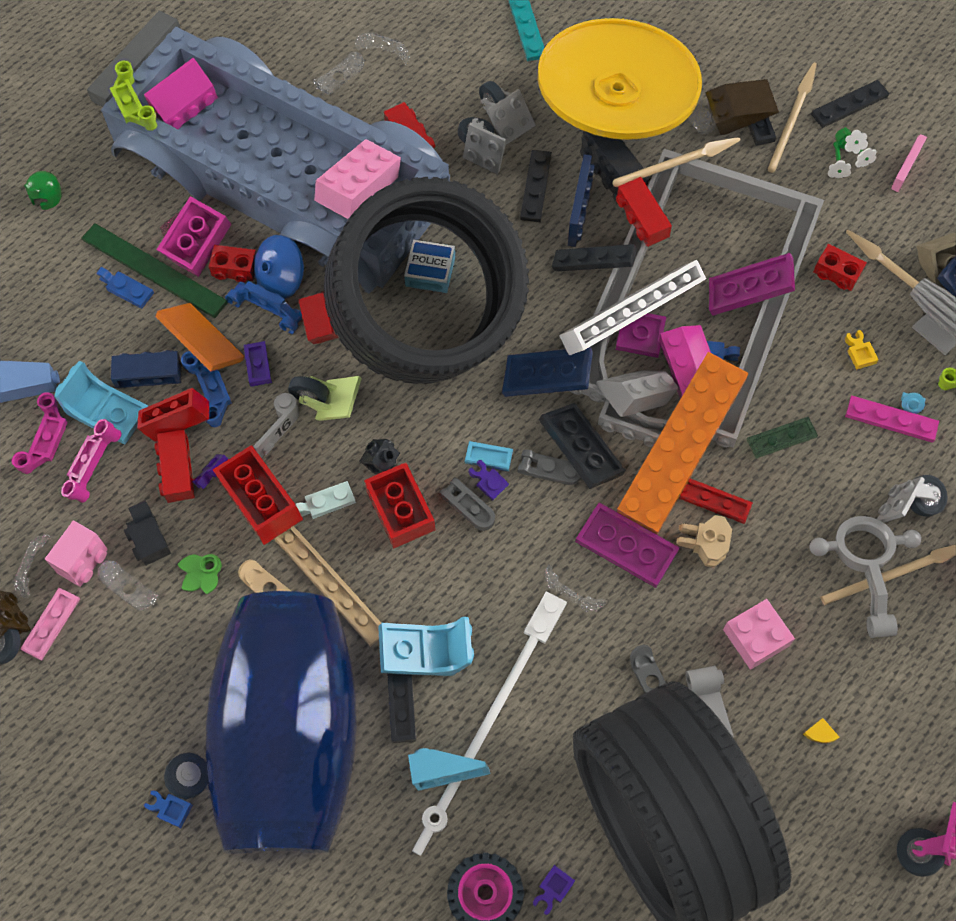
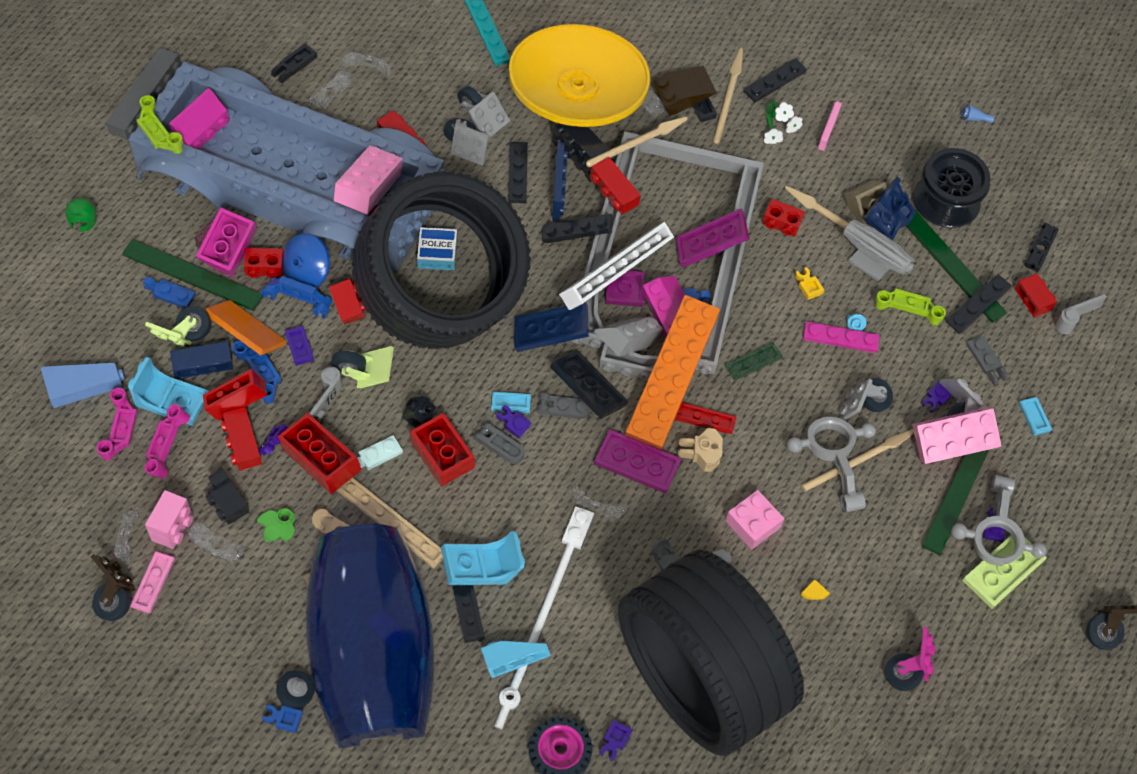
camera: 15 degrees left, 5 degrees down
(138, 329) = (191, 325): none -> plate
(303, 39) = (294, 63): none -> black hinge

